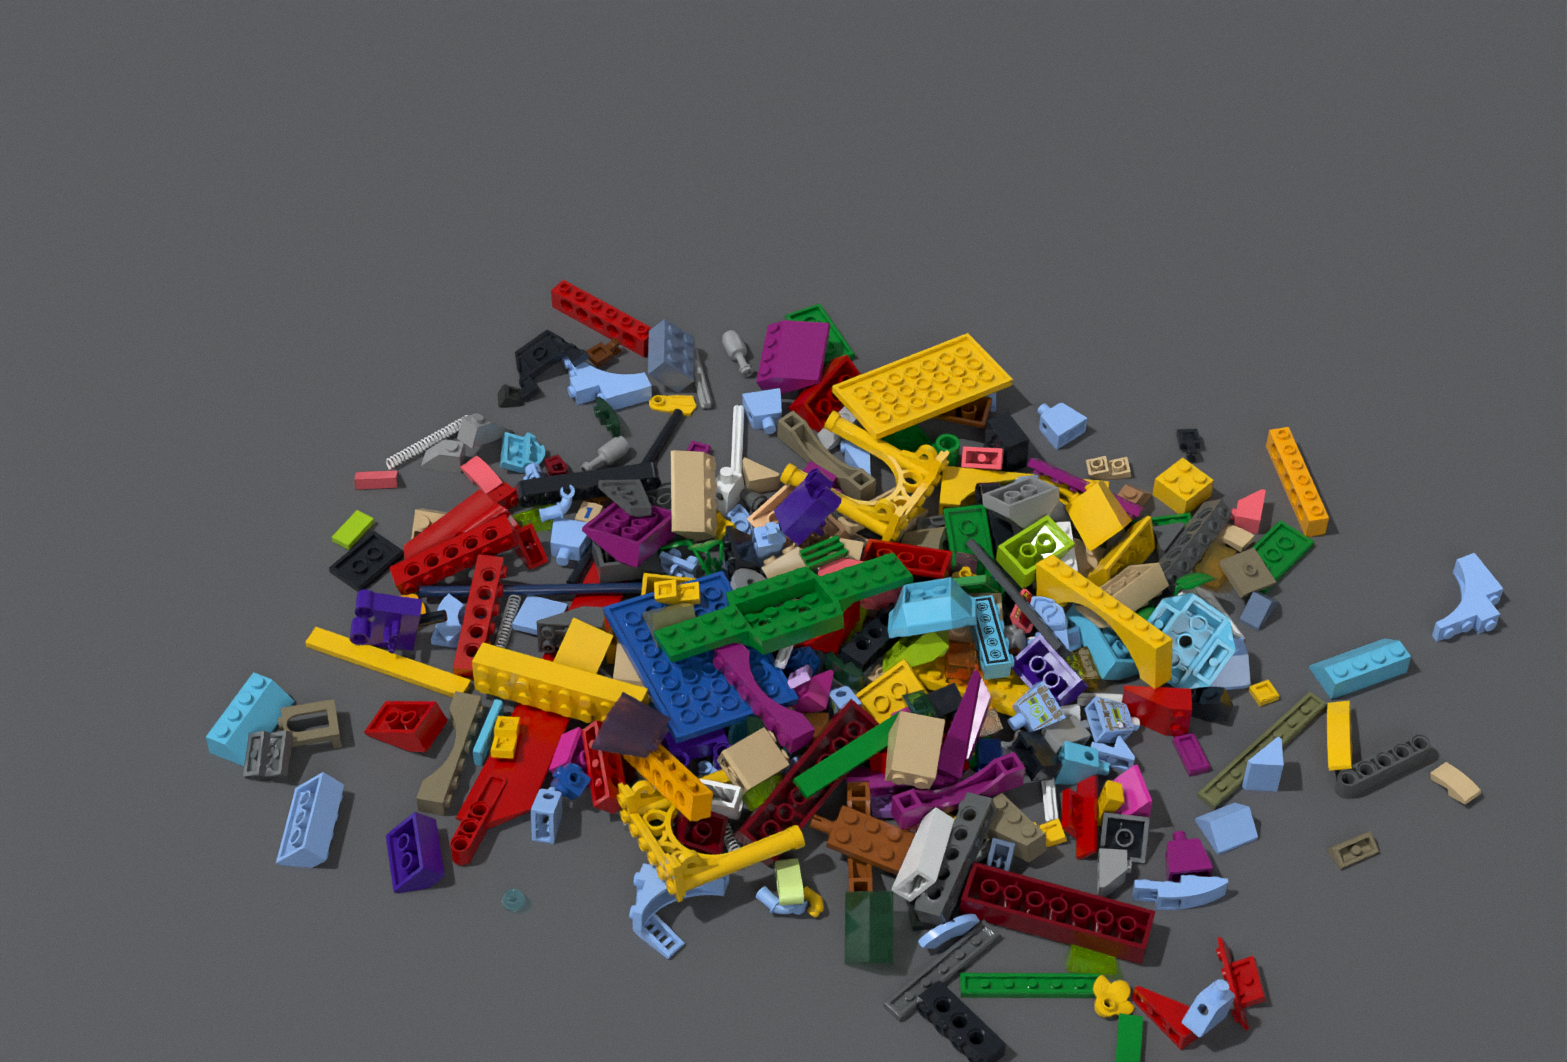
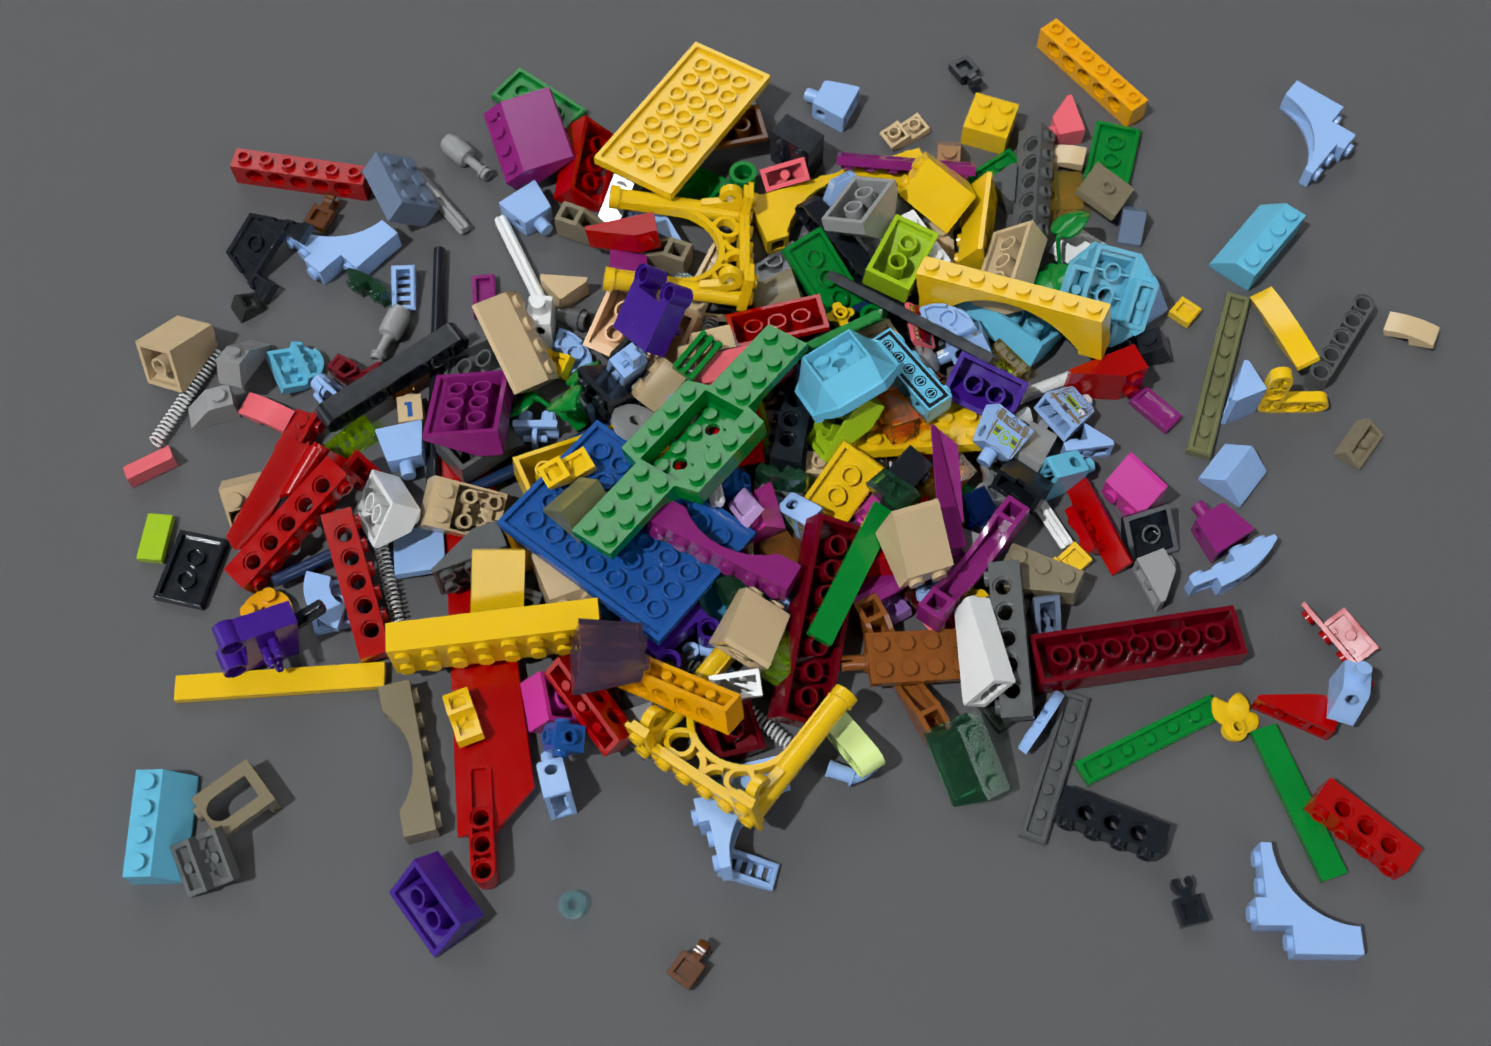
camera: 25 degrees left, 15 degrees up
(311, 822) = (298, 921): light blue slope -> none
(408, 724) = (343, 748): red slope -> none
(438, 406) = (176, 352): none -> tan slope
(487, 733) = (438, 716): medium azure tile -> none
(531, 573) = (386, 509): none -> white slope
(560, 509) = (378, 418): light blue piece -> none
(574, 978) = (687, 967): none -> reddish brown plate
(583, 588) = (458, 507): none -> tan slope
(628, 495) = (447, 373): dark grey wing -> none
(637, 415) = (404, 271): none -> light blue slope
(670, 403) = (426, 242): yellow piece -> none
(815, 900) = (889, 752): yellow arm -> none
(828, 453) = (626, 234): none -> red slope
(967, 560) = (830, 296): tile -> none
(1089, 961) = (1179, 696): clear neon green slope -> none
(1109, 799) = (1121, 508): yellow slope -> none
(1324, 799) = (1281, 400): none -> yellow beam

